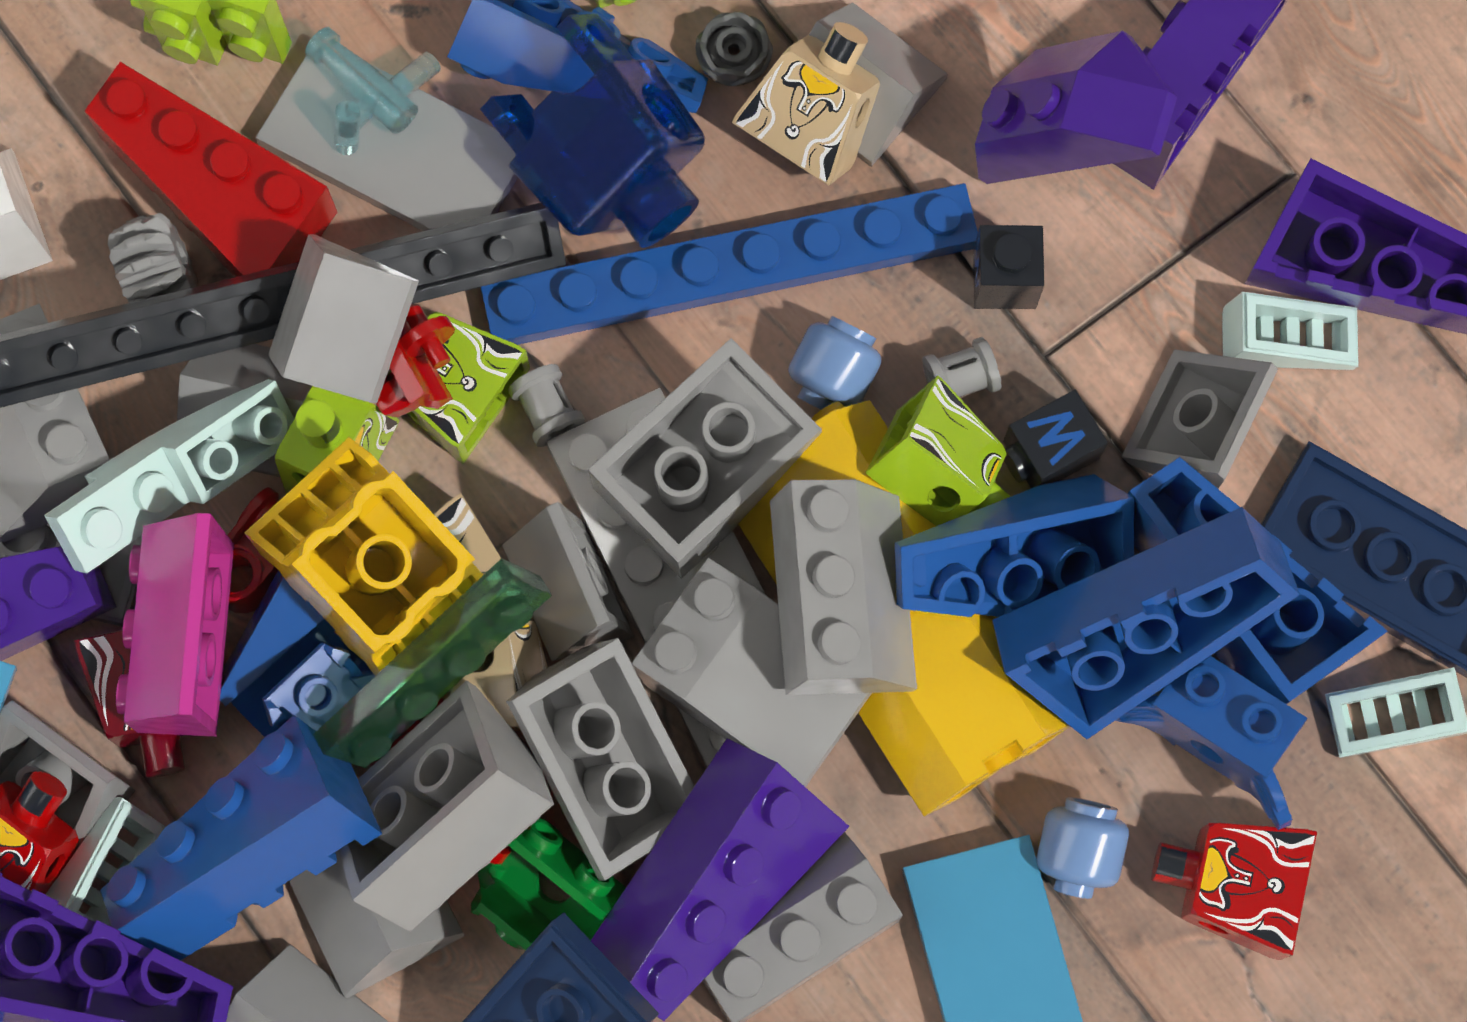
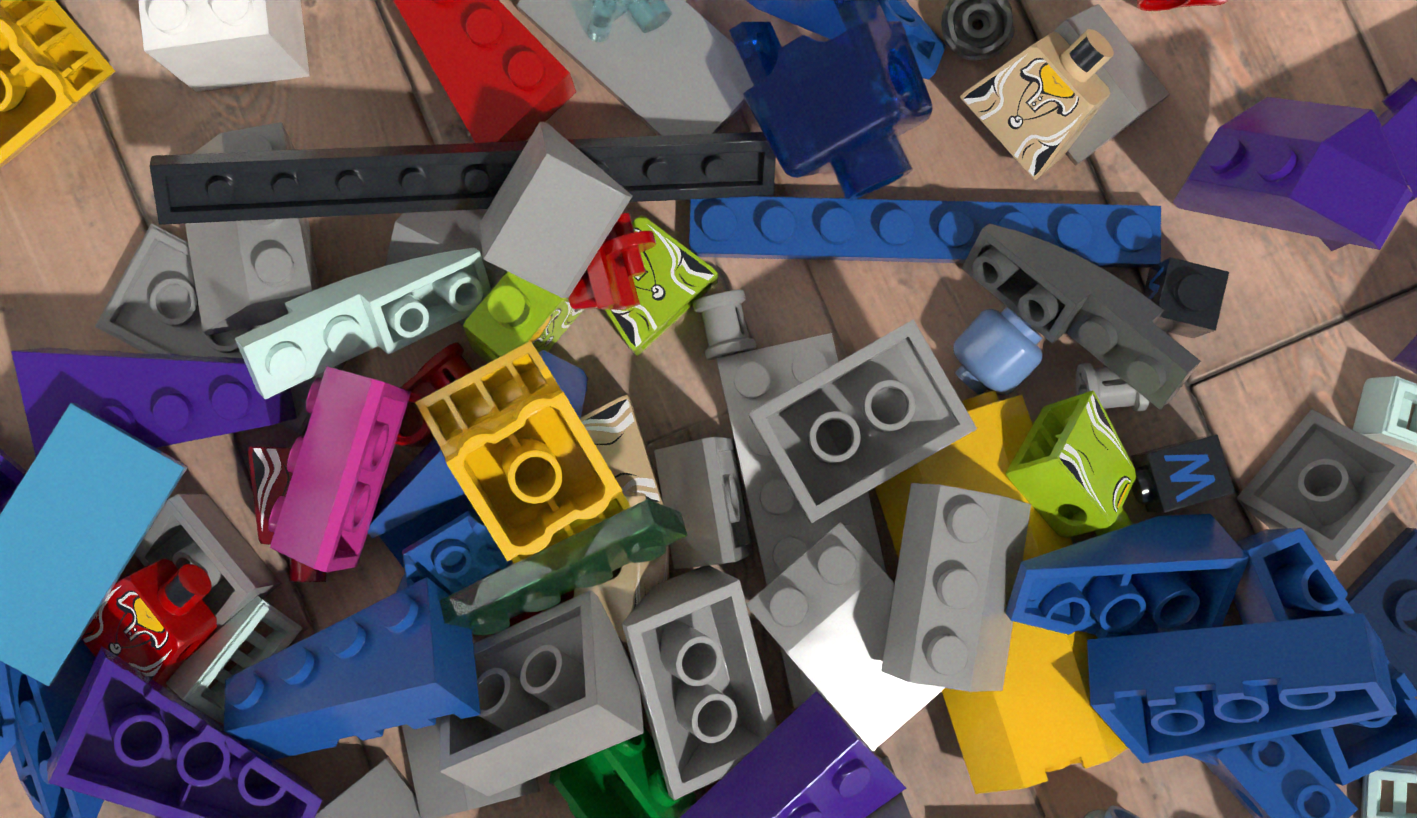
camera: 20 degrees right, 10 degrees up
(150, 258) = (393, 105): light grey gear -> none
(901, 289) = (1073, 296): none -> dark grey slope

